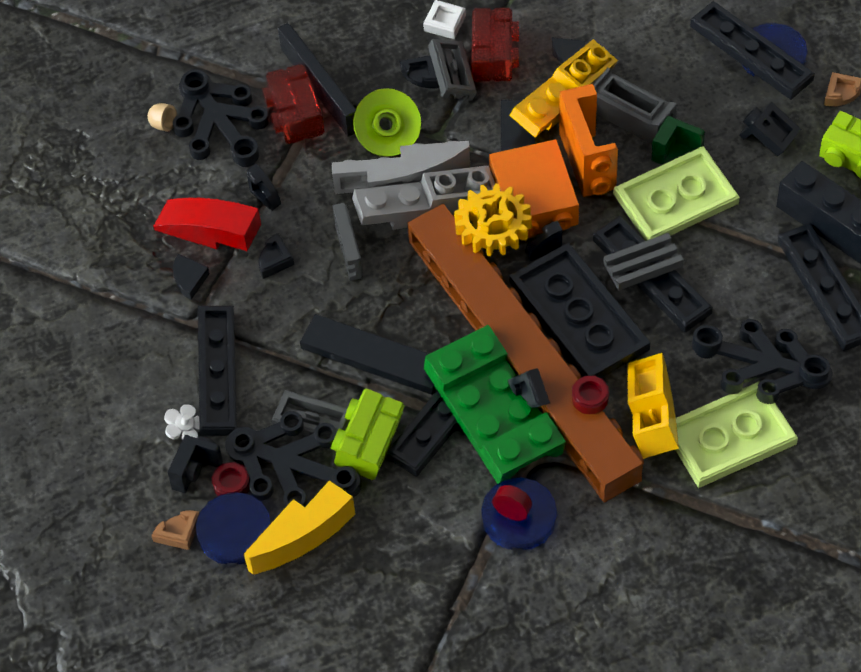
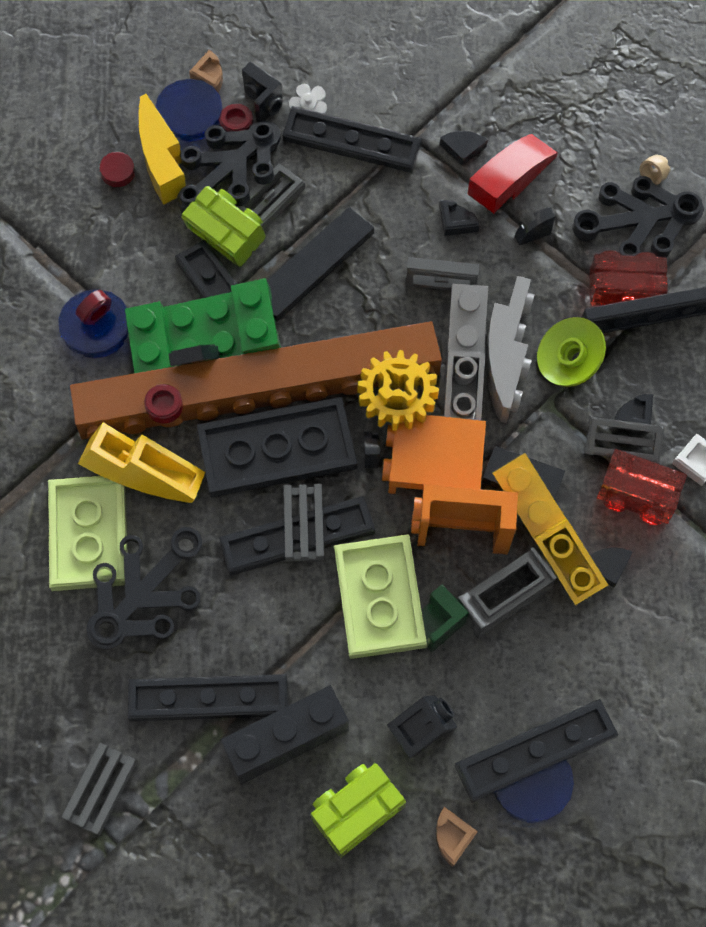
camera: 105 degrees right, 10 degrees up
(332, 568) = (117, 169): none -> dark red tile

